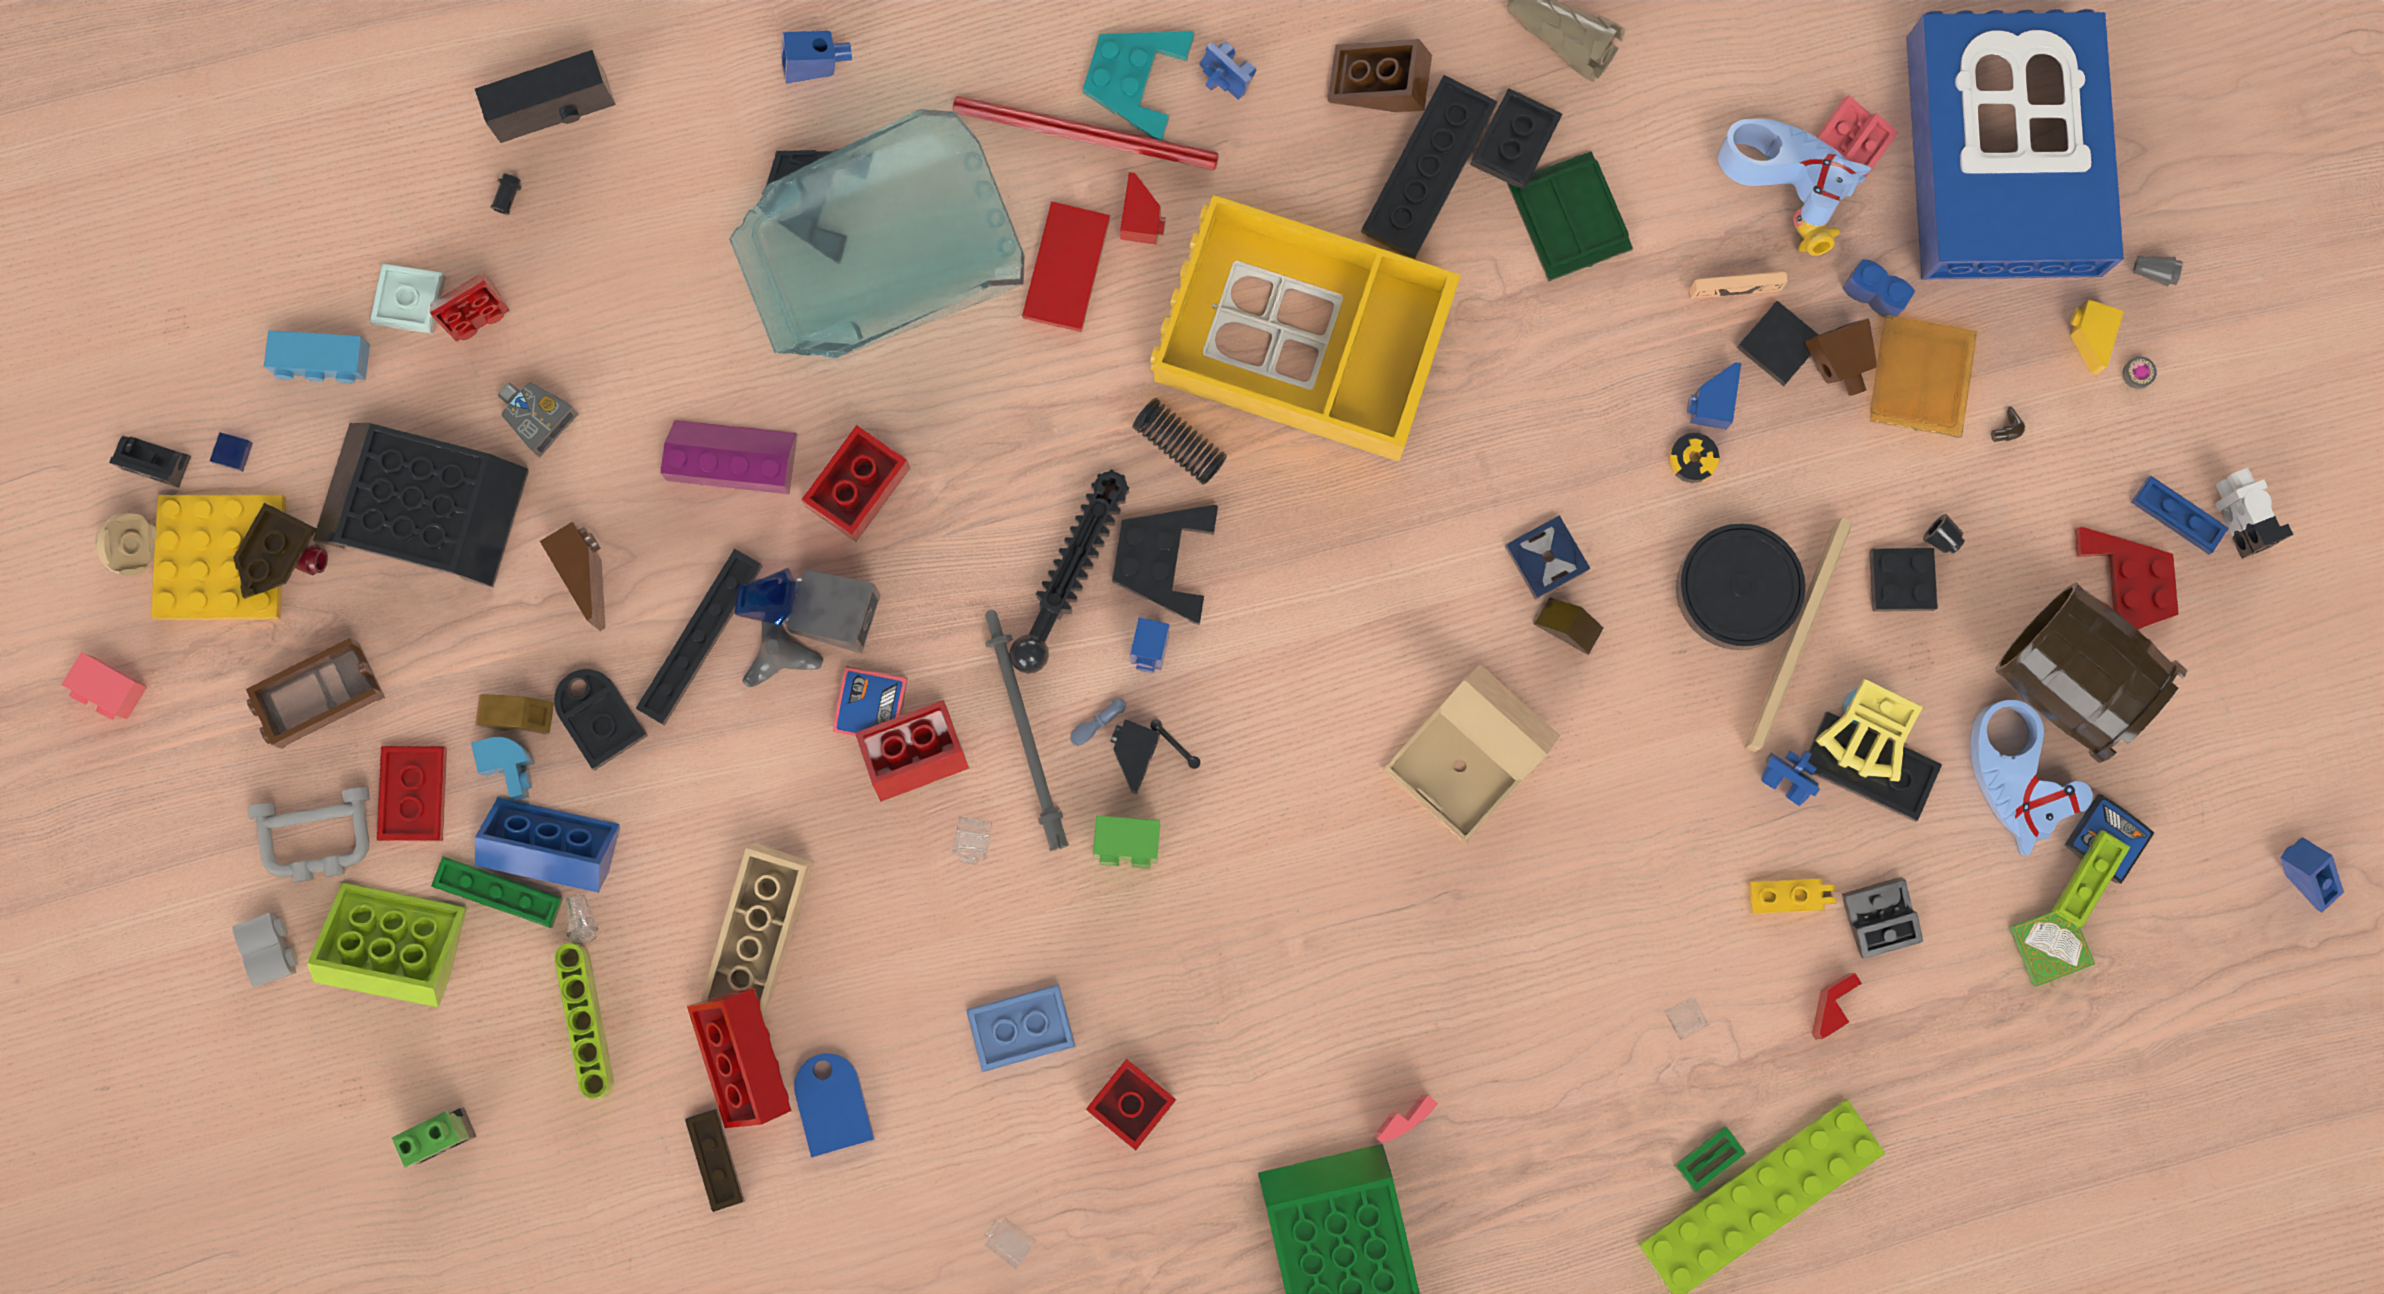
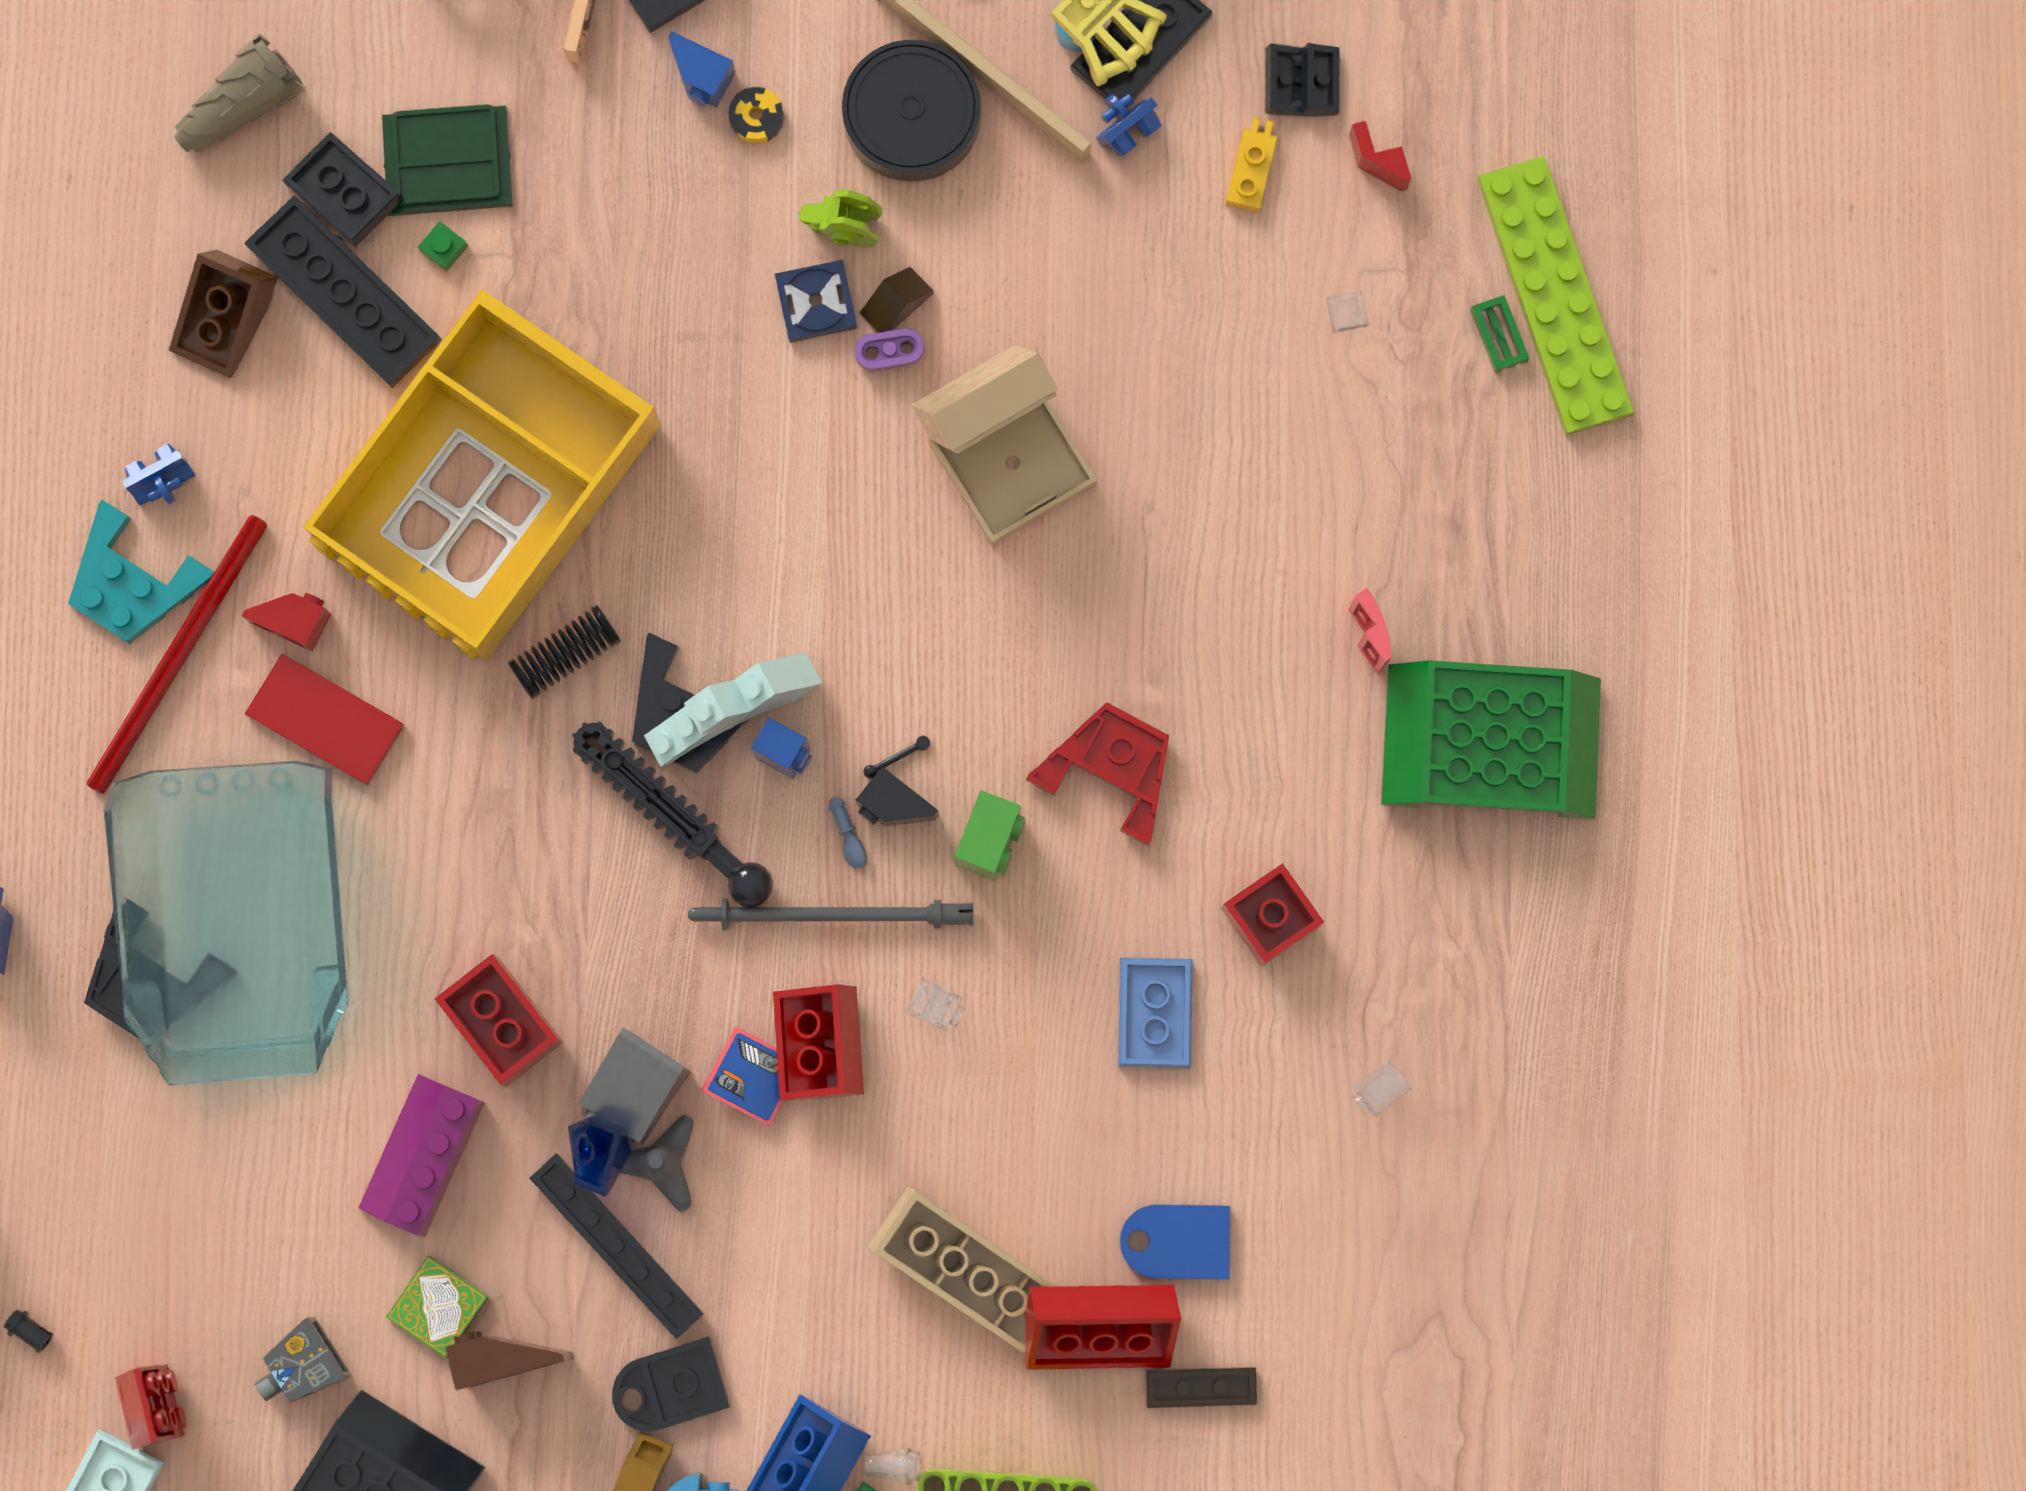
camera: 70 degrees left, 0 degrees up
(612, 507) = (437, 1306): none -> tile
(1175, 592) = (731, 703): none -> light aqua arch
(1234, 933) = (1119, 752): none -> red wing
(1495, 235) = (443, 246): none -> green plate
(1525, 631) = (889, 345): none -> medium lavender plate
(1625, 557) = (844, 218): none -> lime hinge

